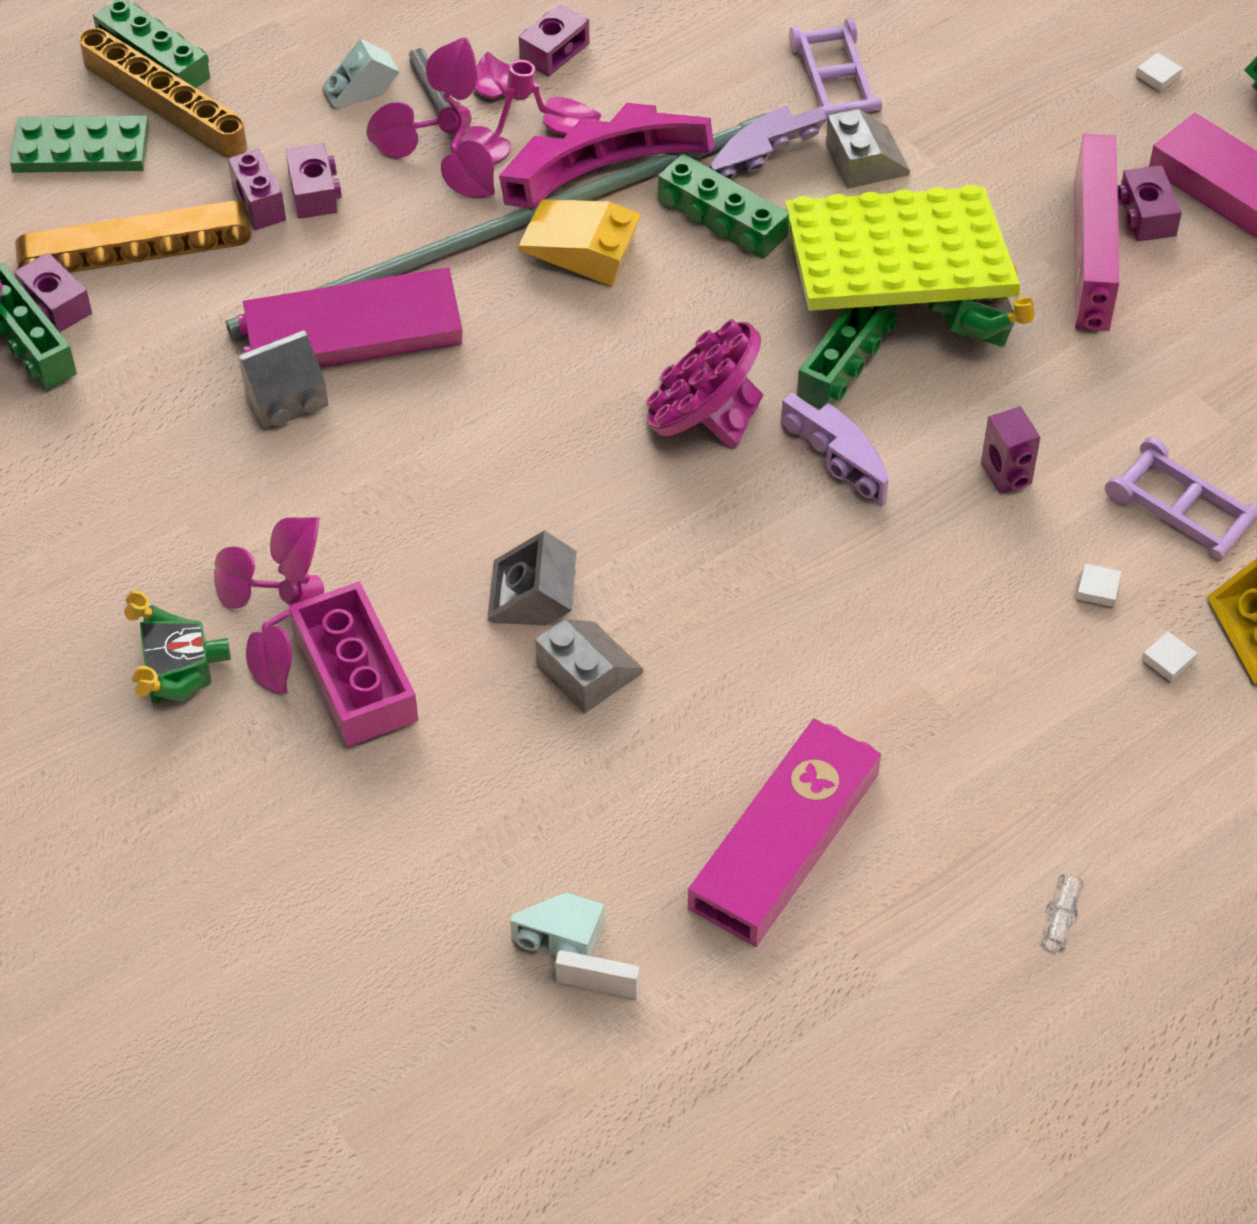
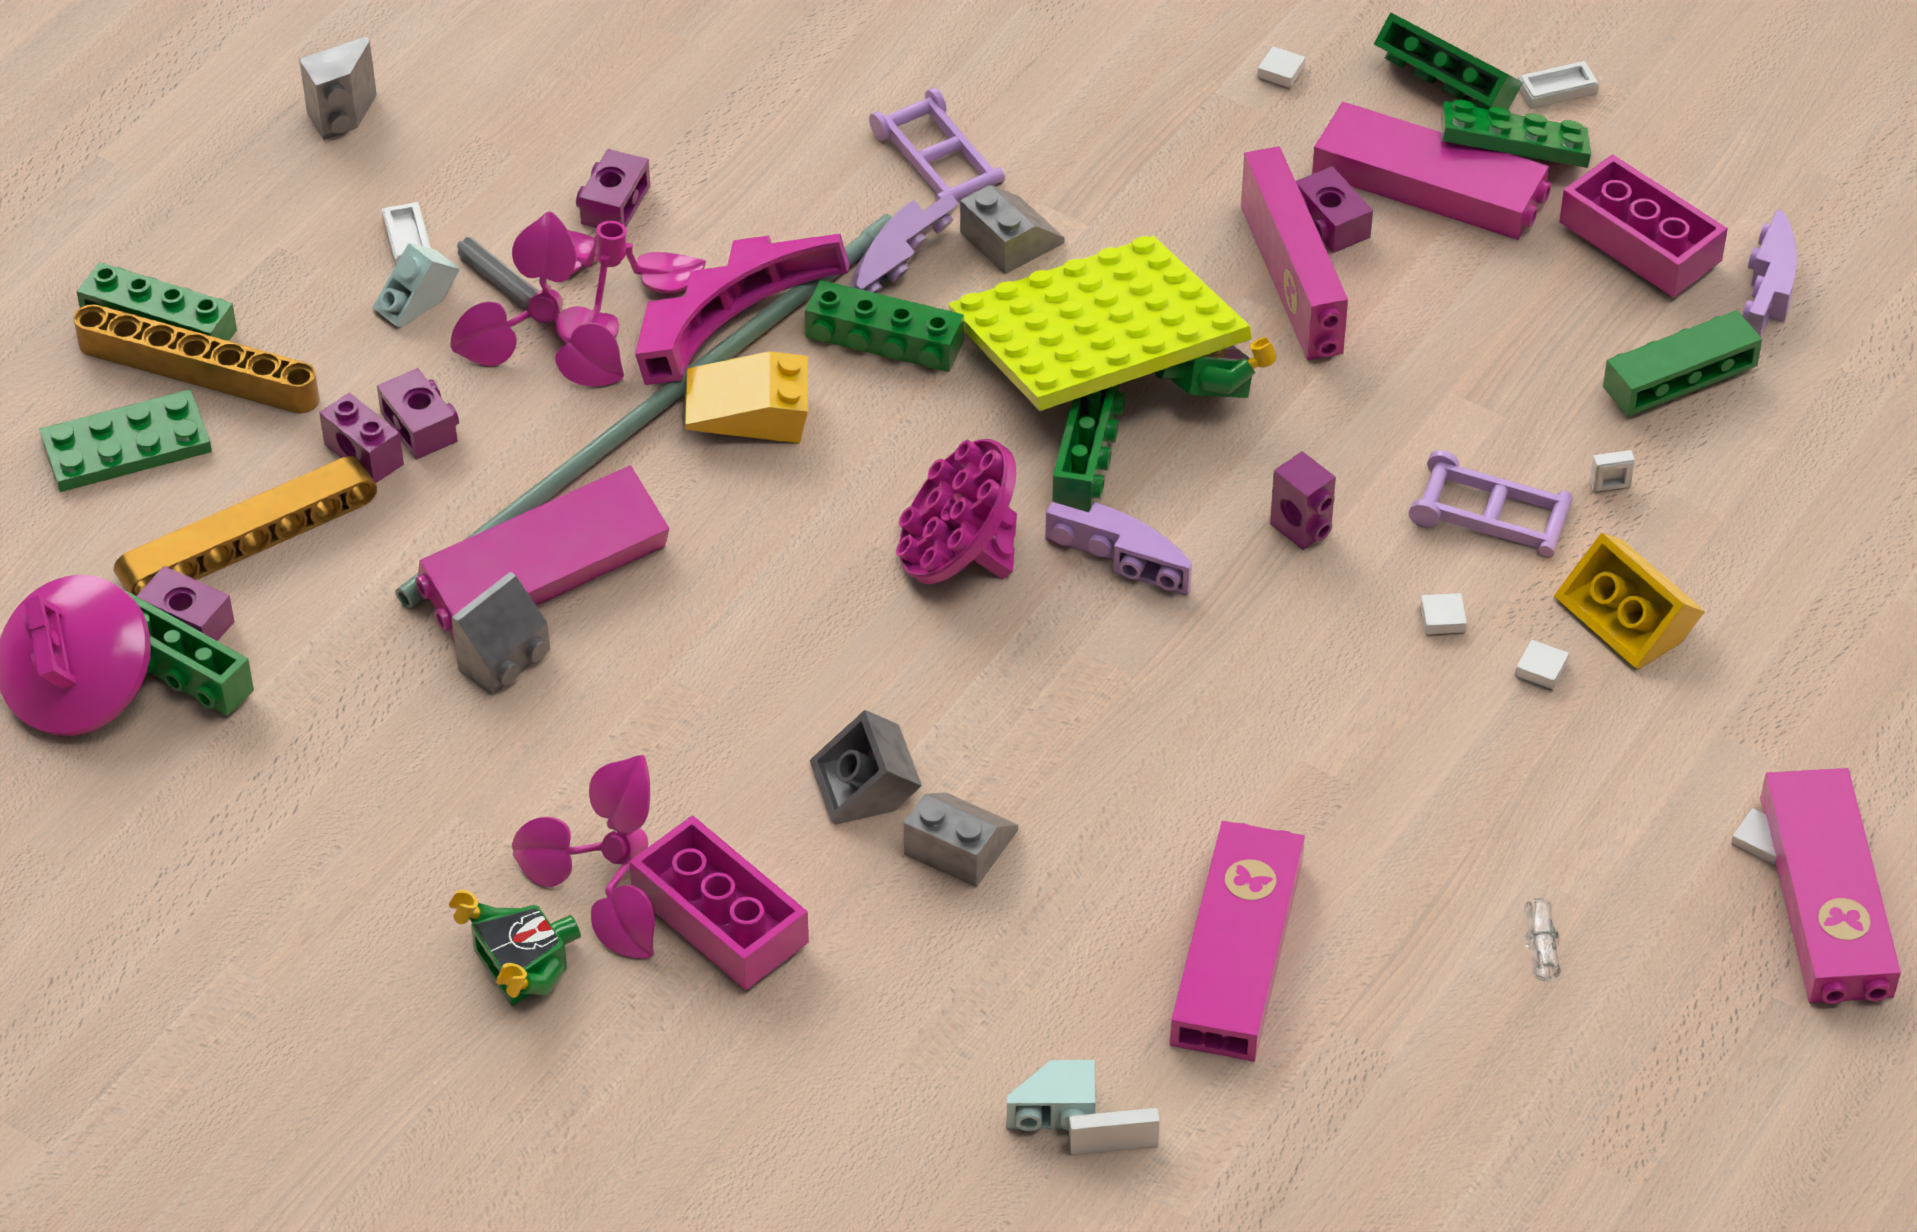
camera: 20 degrees left, 5 degrees down
(379, 28) = (404, 226): none -> white tile

